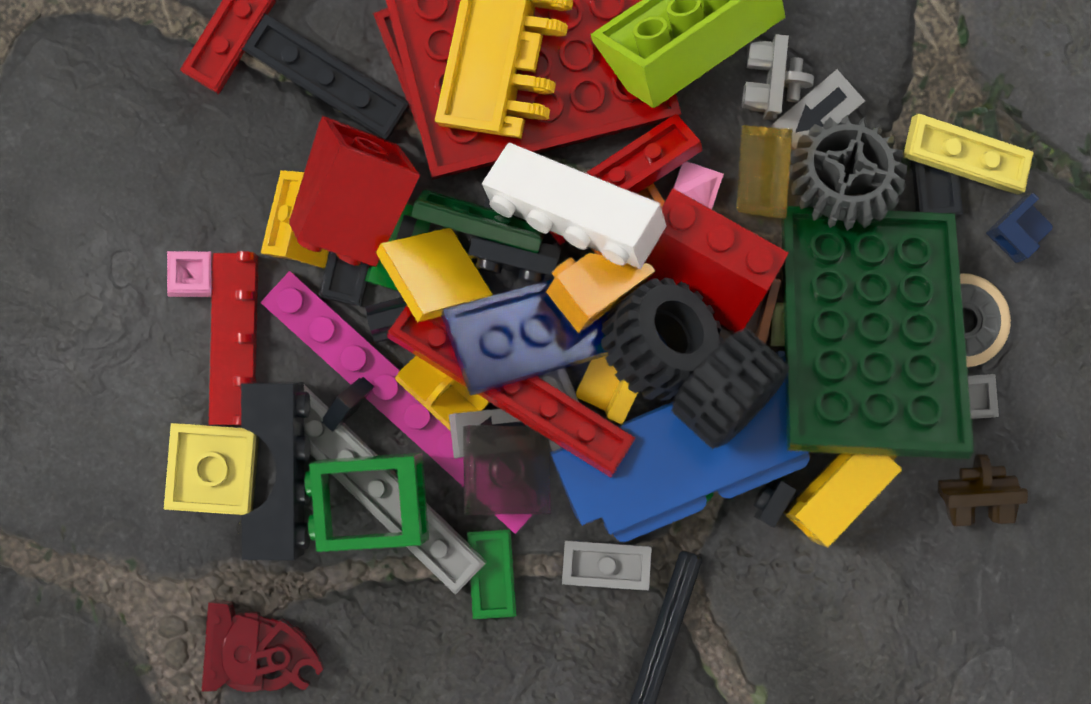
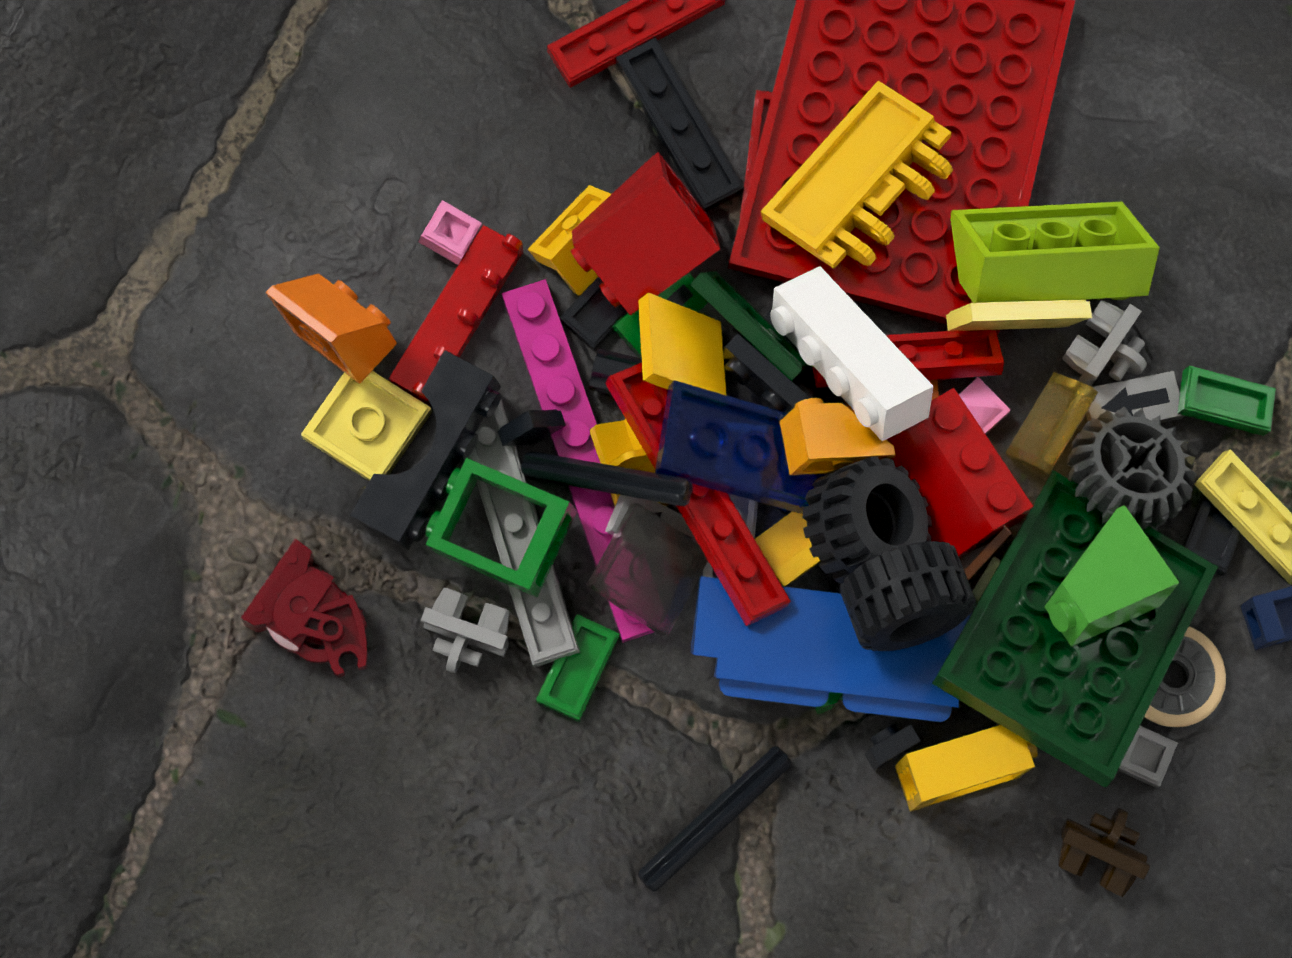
camera: 25 degrees right, 10 degrees down
(137, 406) = (334, 323): none -> orange slope
(365, 596) = (486, 635): none -> light grey hips
(433, 416) = (607, 478): none -> black axle
(606, 565) = (694, 718): light grey plate -> none
(691, 94) = (1018, 315): none -> light yellow tile
(881, 281) = (1111, 581): none -> bright green slope
(892, 70) = (1226, 400): none -> green tile

